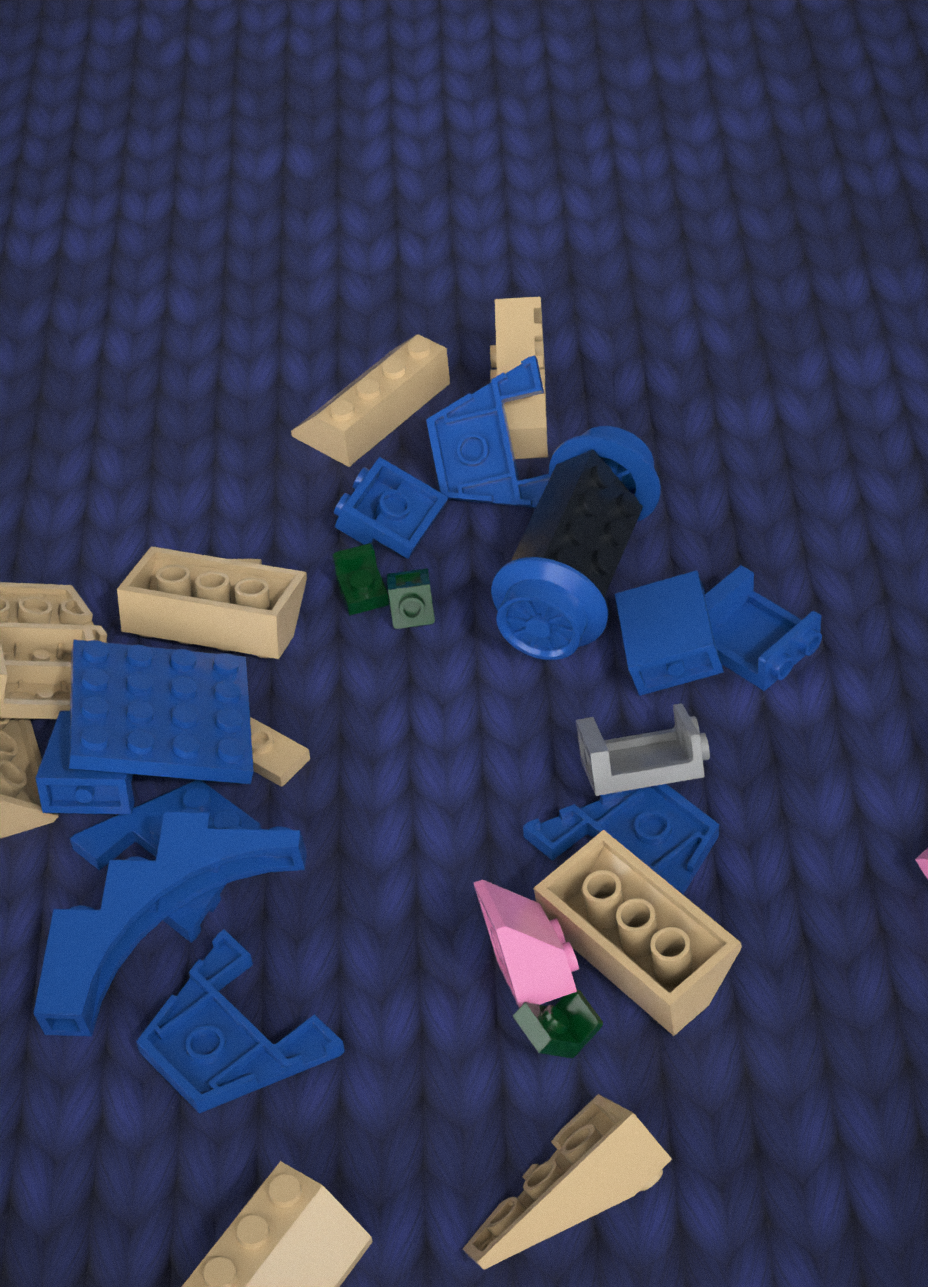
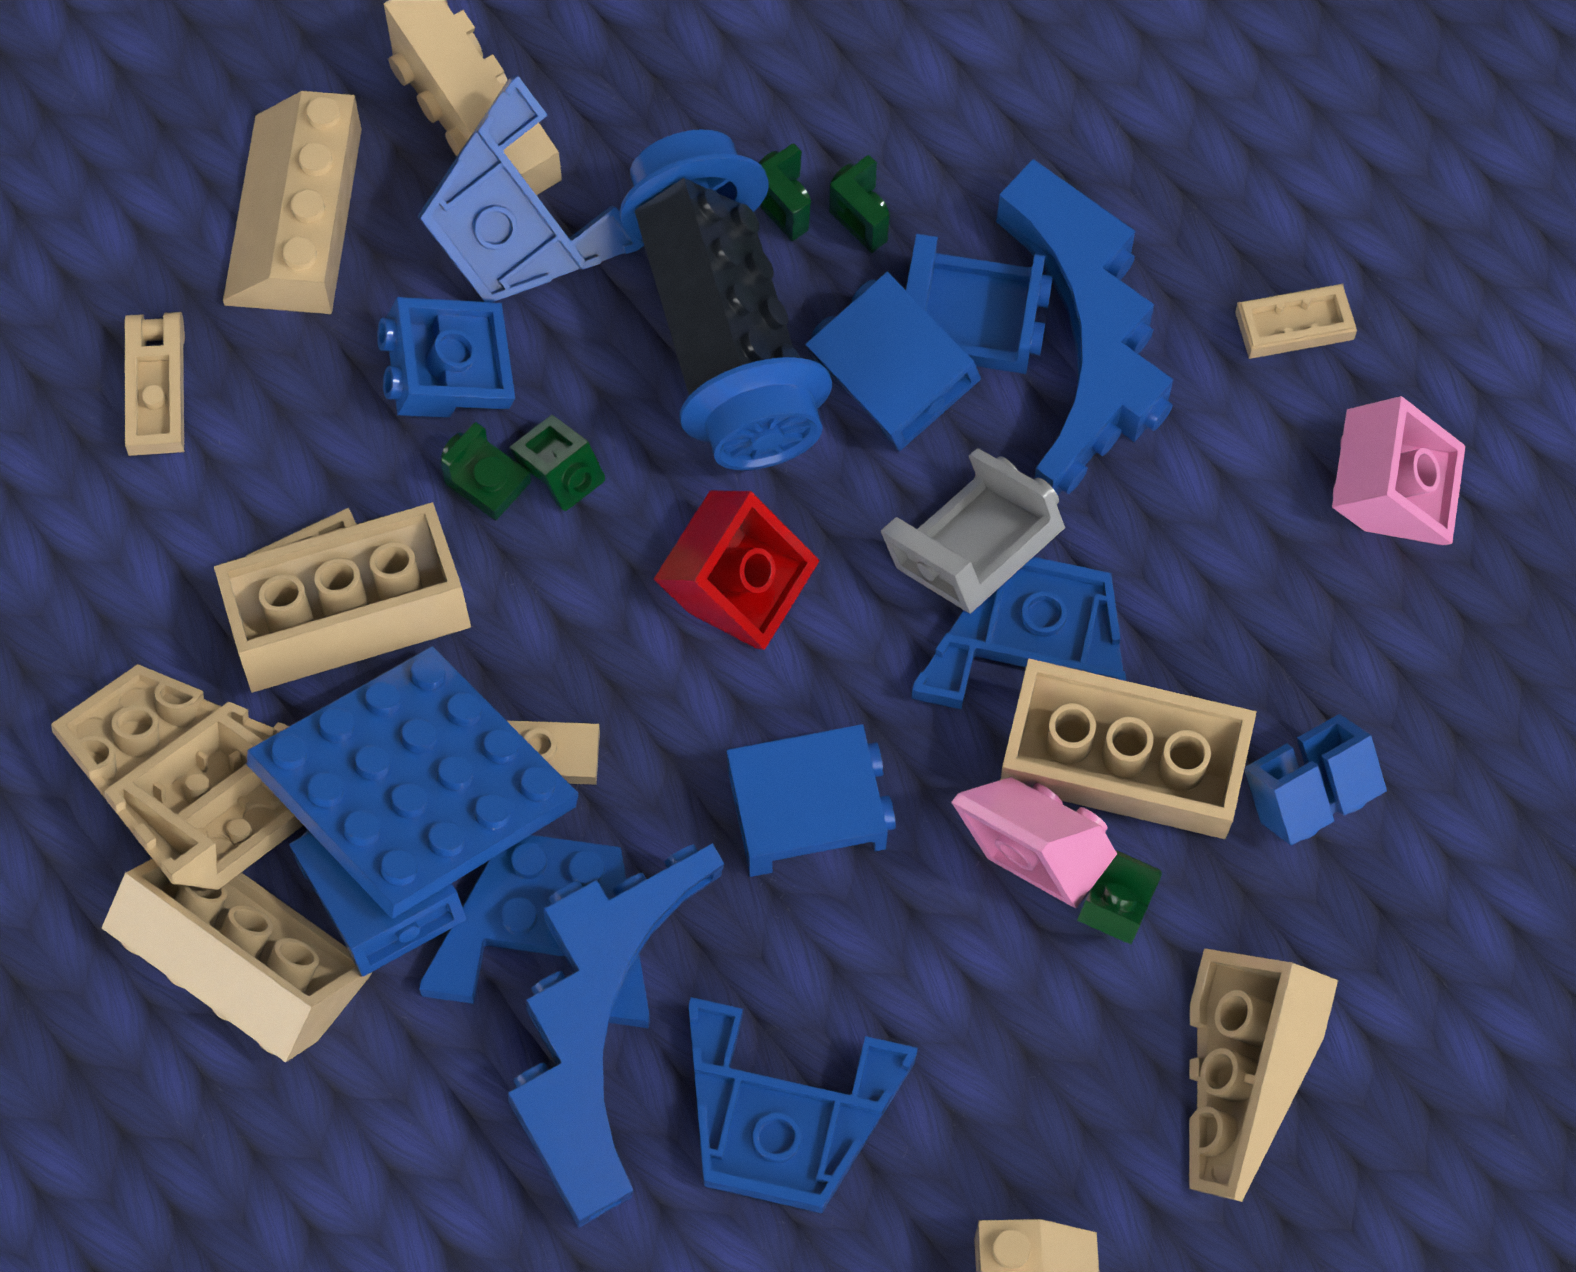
camera: 40 degrees left, 20 degrees up
(212, 452) = (154, 385): none -> tan plate
(401, 852) = (808, 796): none -> blue panel
(470, 704) = (737, 567): none -> red slope
(678, 507) = (786, 197): none -> dark green bracket
(722, 537) = (857, 205): none -> dark green bracket
(789, 1024) = (1337, 776): none -> blue piece
(814, 712) = (1110, 321): none -> blue arch

